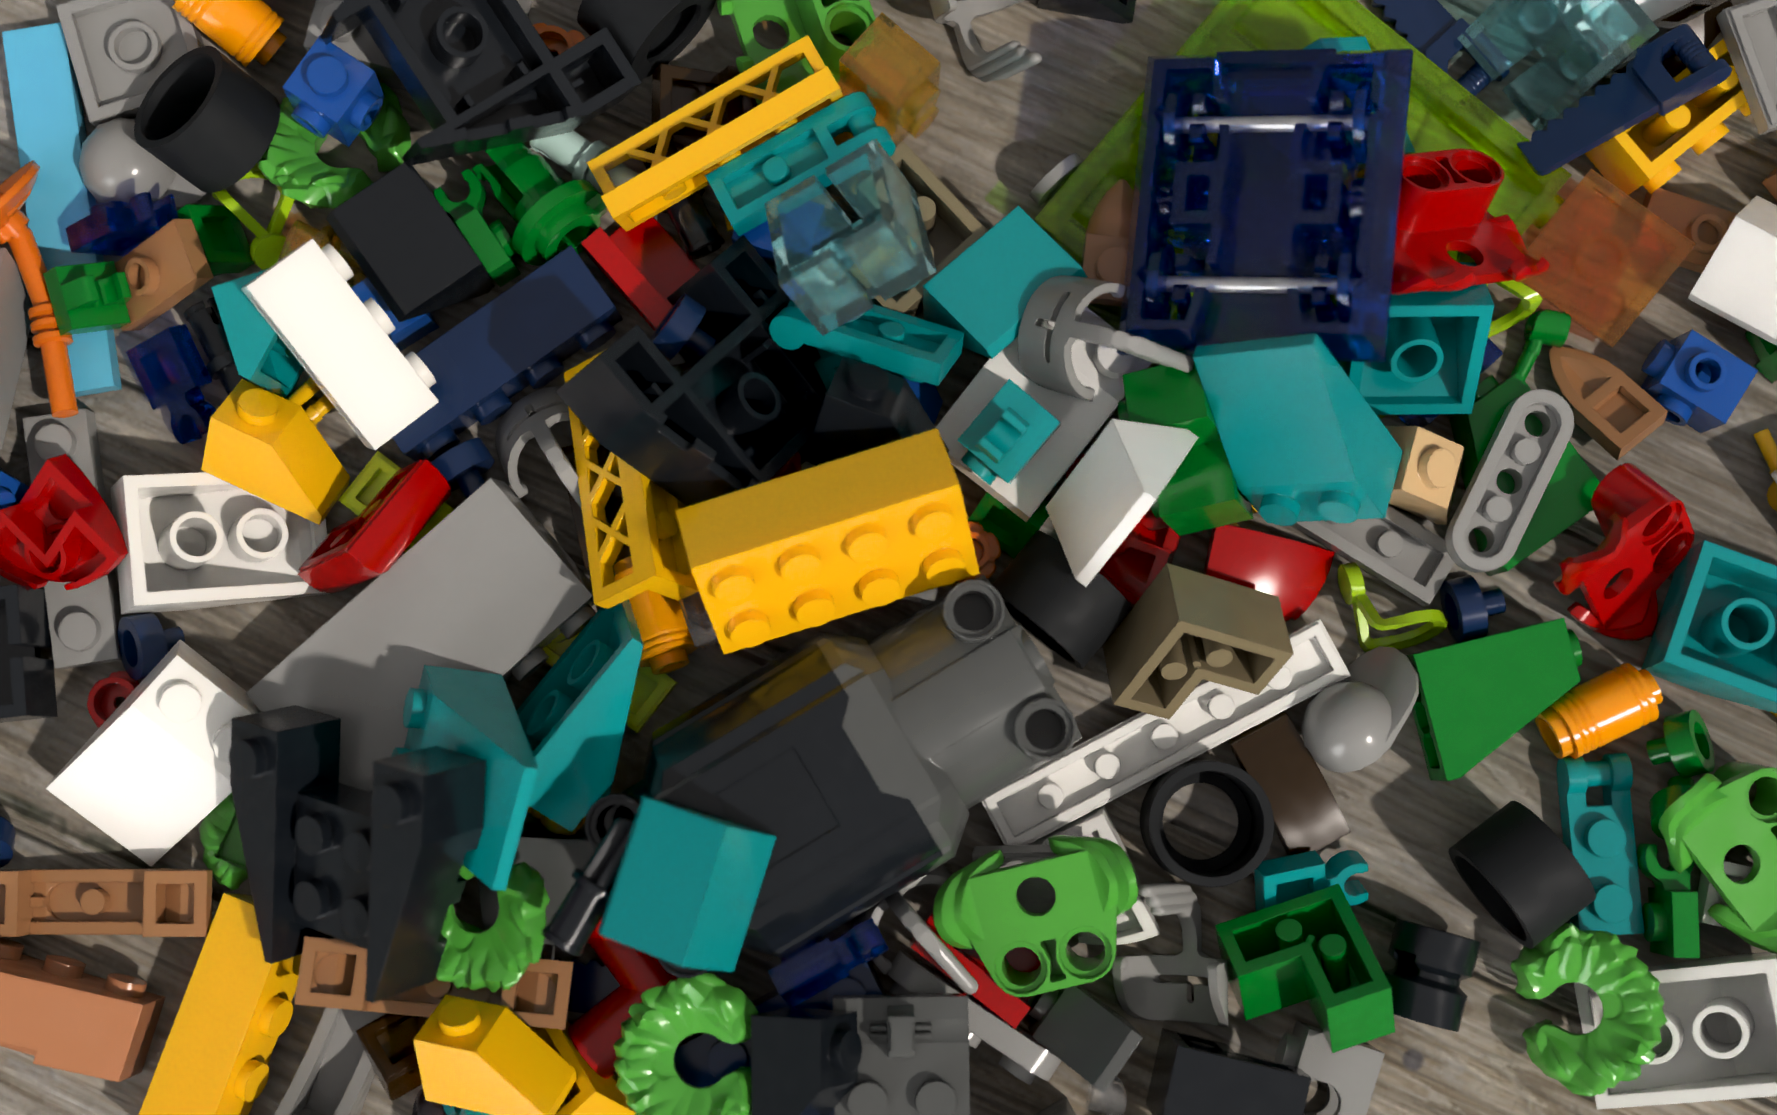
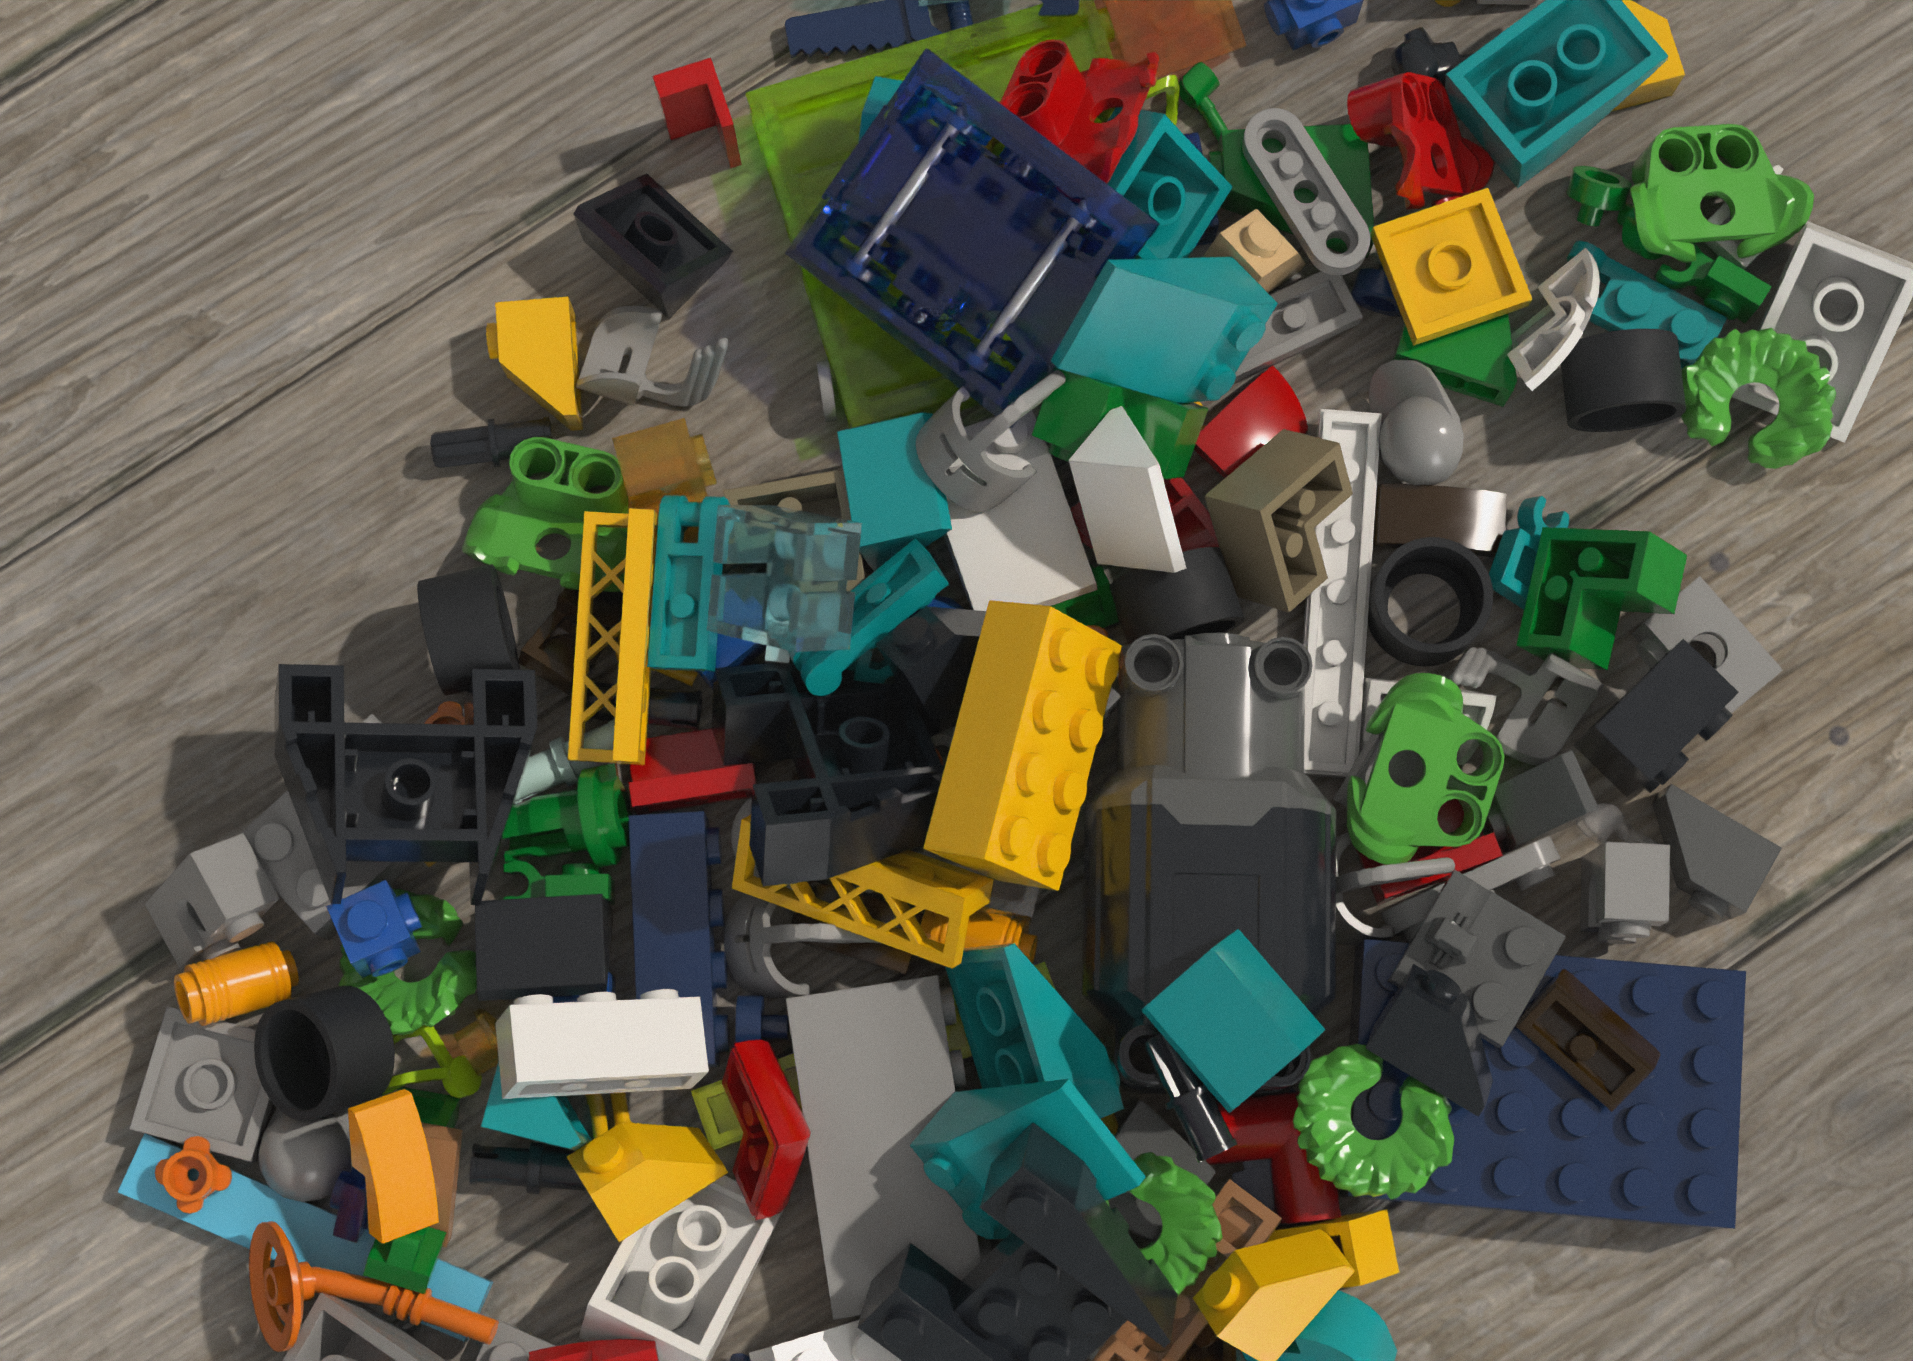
camera: 55 degrees left, 5 degrees down
(34, 71) = (174, 1174): none -> orange plate
(135, 235) = (396, 1164): none -> light orange slope
(172, 377) = (512, 1223): clear blue plate -> none
(681, 329) = (761, 763): dark blue tile -> none
(826, 962) = (1359, 966): clear blue plate -> none
(1006, 434) = (1021, 555): teal brick -> none
(1108, 239) = (908, 376): medium nougat plate -> none
(1354, 592) = (1314, 370): lime piece -> none
(1430, 974) = (1656, 500): black wheel -> none
(1525, 654) = (1451, 266): none -> yellow plate
(1529, 785) = (1556, 329): none -> white brick
(1600, 711) = (1534, 228): light orange head -> none
(1605, 400) = (1284, 78): medium nougat plate -> none
(1708, 512) = (1424, 57): none -> black piece

